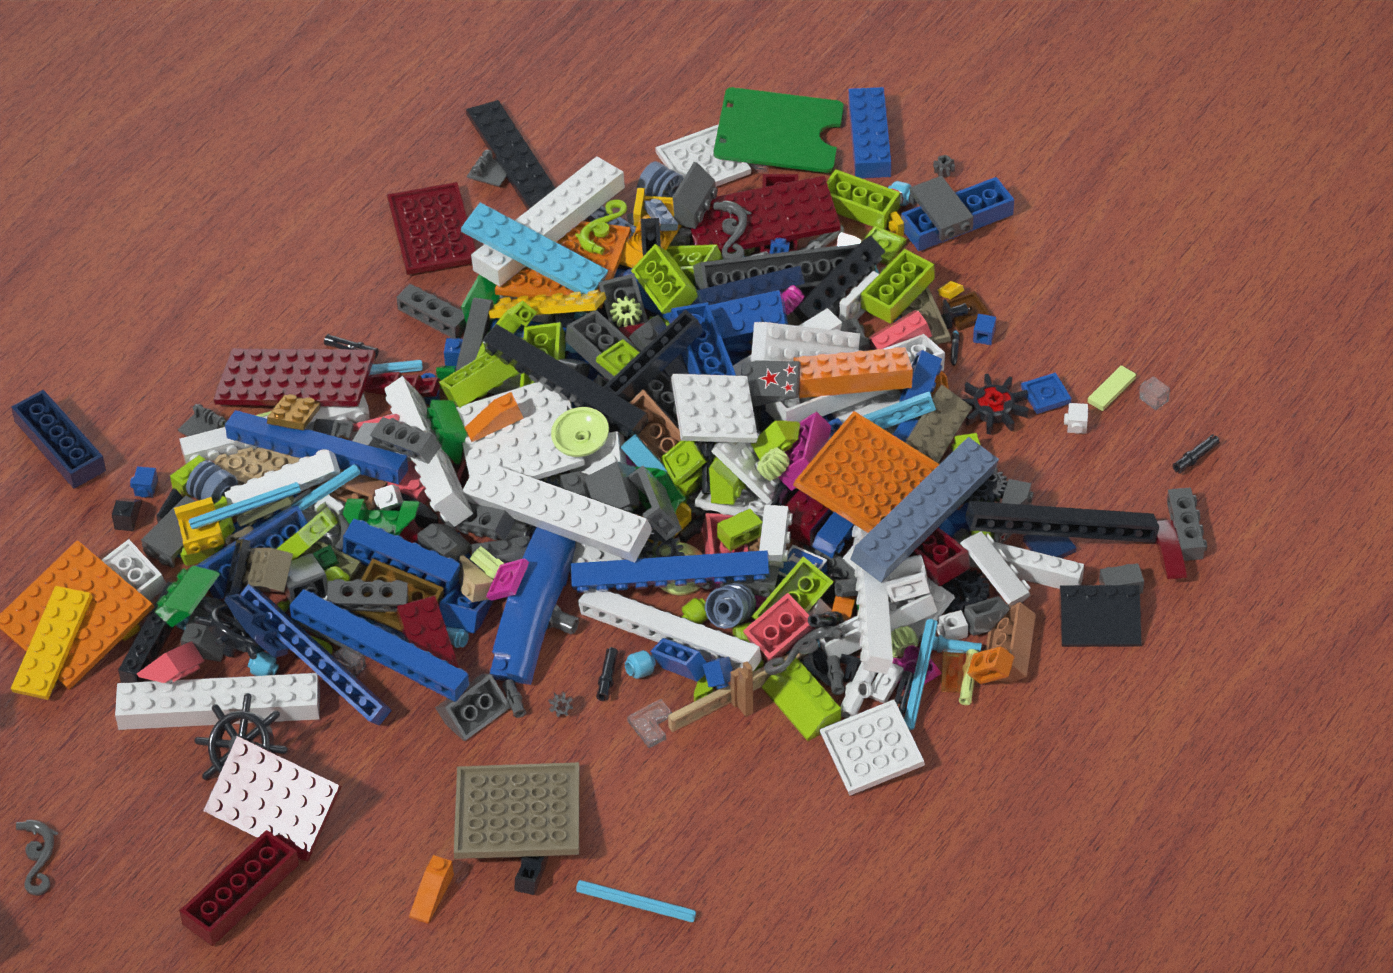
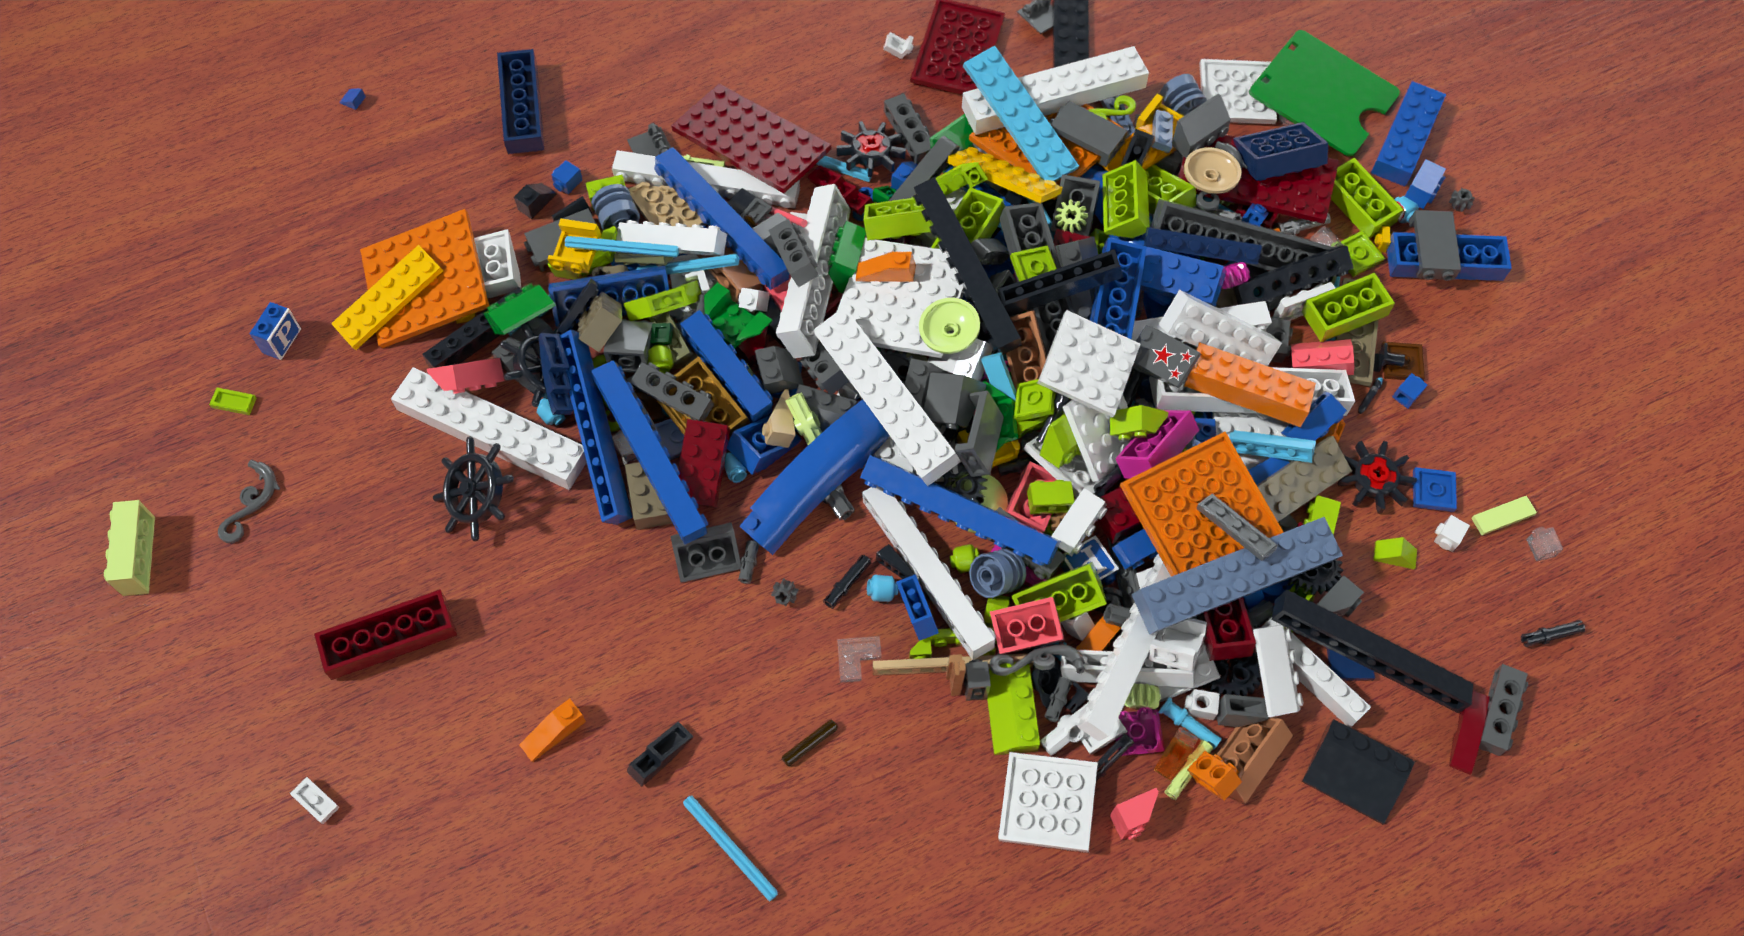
camera: 25 degrees right, 15 degrees up
(272, 794) = (467, 559): plate -> none
(293, 412) = (721, 173): pearl gold plate -> none
(331, 340) = (819, 128): black pin -> none
(377, 250) = (898, 46): none -> white bracket
(395, 690) = (644, 501): none -> dark tan brick
(408, 341) = (871, 148): none -> black gear
(507, 579) = (803, 441): dark pink tile -> none
(517, 810) = (675, 690): dark tan plate -> none
(600, 239) = (1089, 131): none -> dark grey panel
(635, 641) = (891, 560): none -> black slope
(652, 800) = (809, 742): none -> dark brown axle
(718, 672) = (942, 643): blue brick -> none
(723, 225) = (1212, 170): none -> tan dish
(764, 690) = (976, 680): none -> dark grey brick
(773, 187) = (1282, 151): none -> dark blue slope
(773, 464) = (1117, 446): yellowish green gear -> none
(826, 619) = (1080, 641): black pin -> none
(904, 472) = (1237, 527): none -> dark grey tile
(907, 164) = (1426, 184): none -> brick
(920, 673) = (1139, 746): medium azure axle -> none
(943, 722) = (1134, 814): none -> coral slope
(950, 290) = (1399, 332): yellow tile -> none
(1041, 452) = (1395, 552): none -> lime slope
(1122, 575) = (1402, 739): dark grey brick -> none

